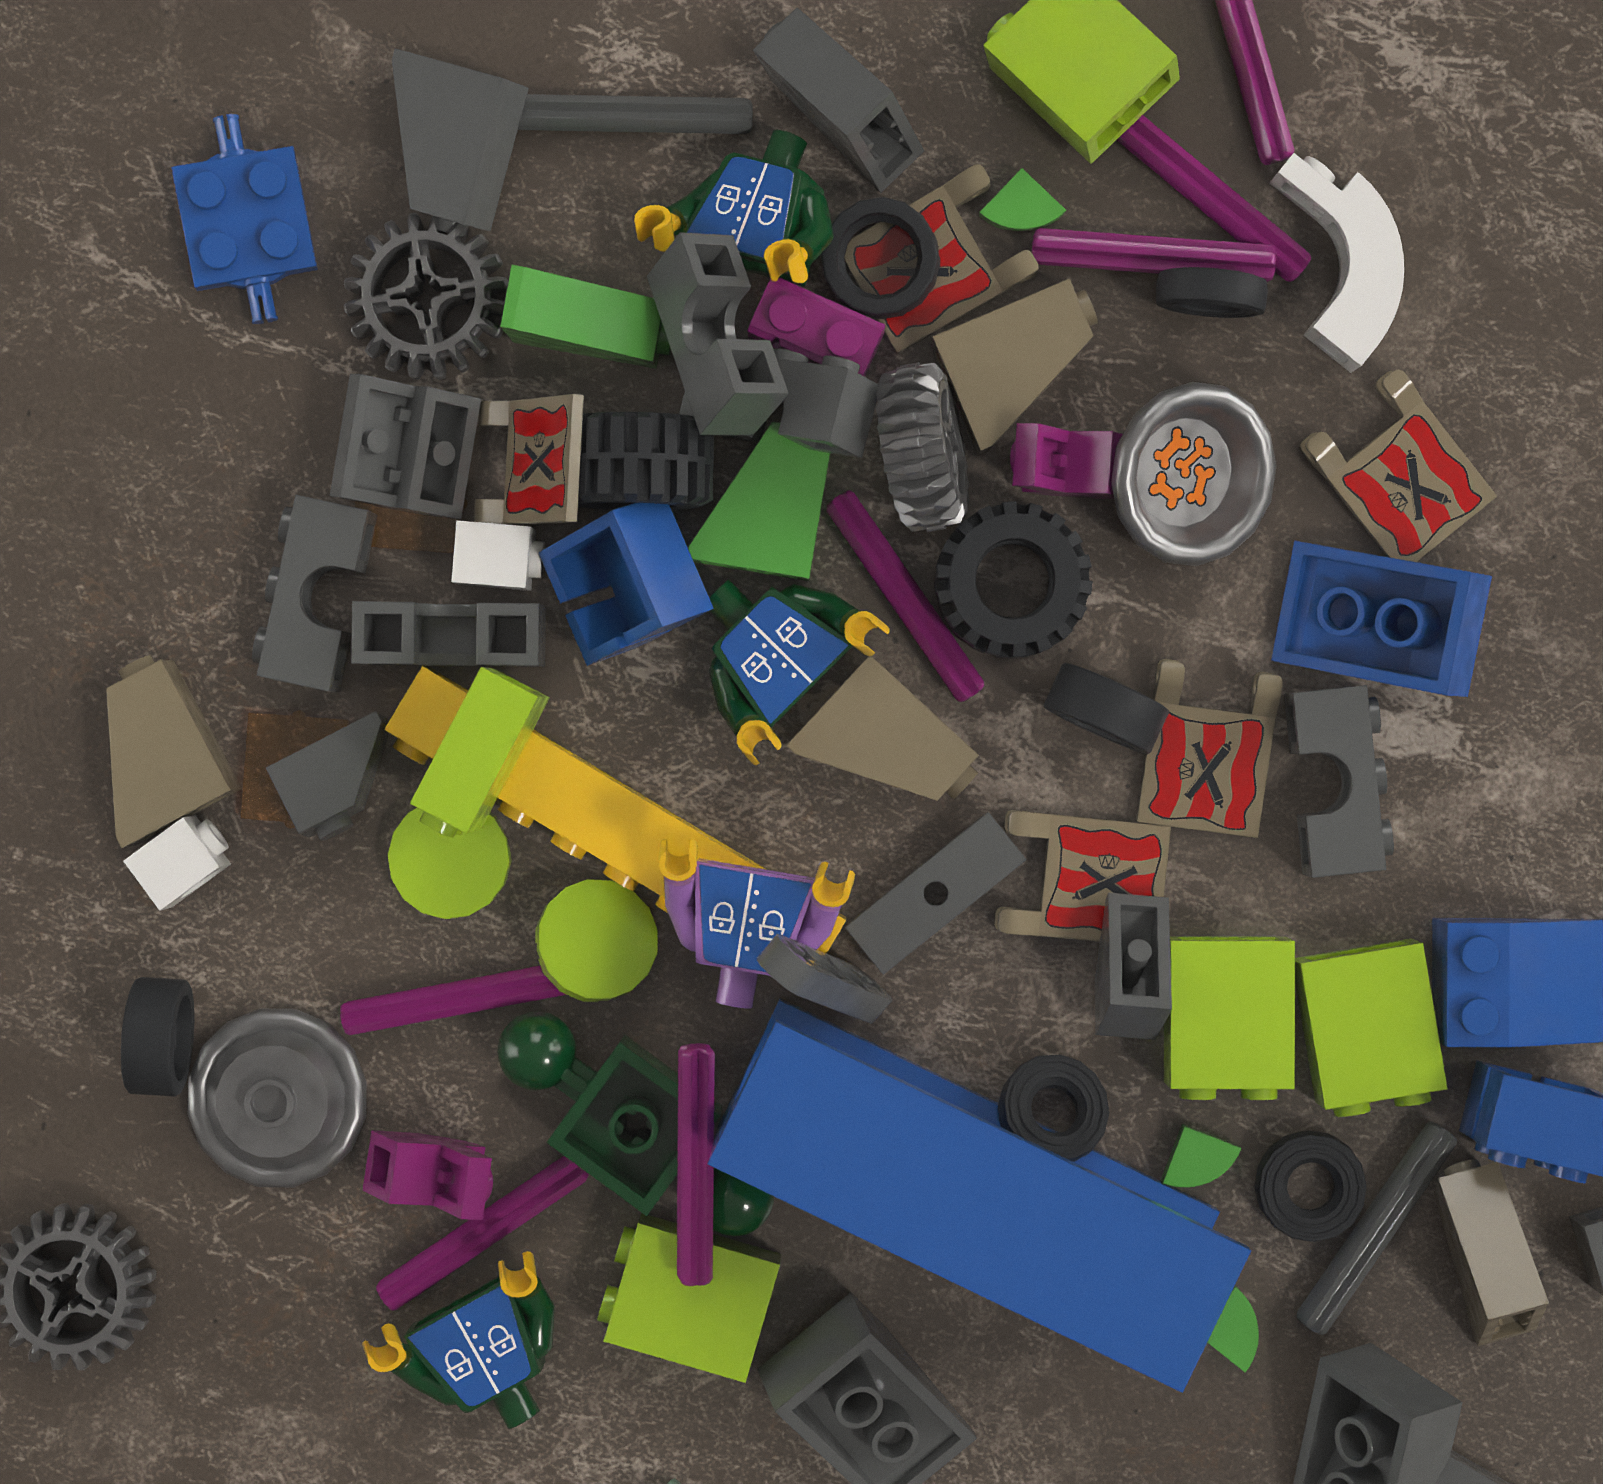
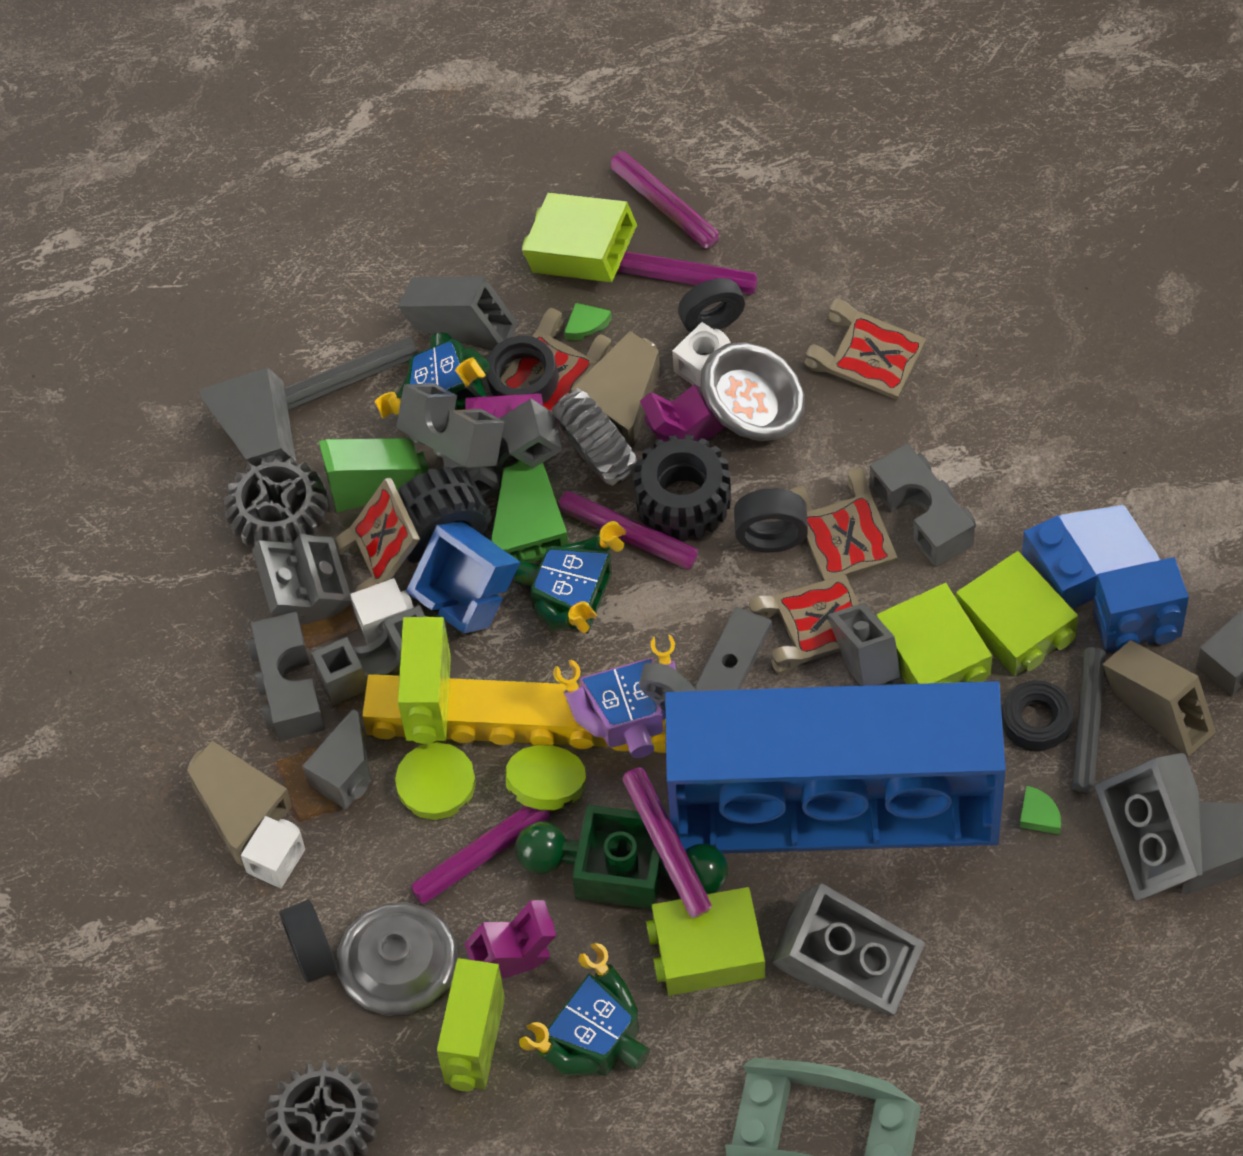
camera: 20 degrees left, 30 degrees down
(244, 218) = (152, 517): blue plate -> none
(314, 1275) = (471, 1024): none -> lime brick
(478, 1235) = (562, 969): magenta axle -> none
(887, 736) = (656, 598): dark tan slope -> none
(1132, 371) = (687, 357): none -> white brick
(1148, 253) = (649, 316): magenta axle -> none
(1367, 255) = (782, 255): white arch -> none
(1381, 619) = (898, 409): blue slope -> none

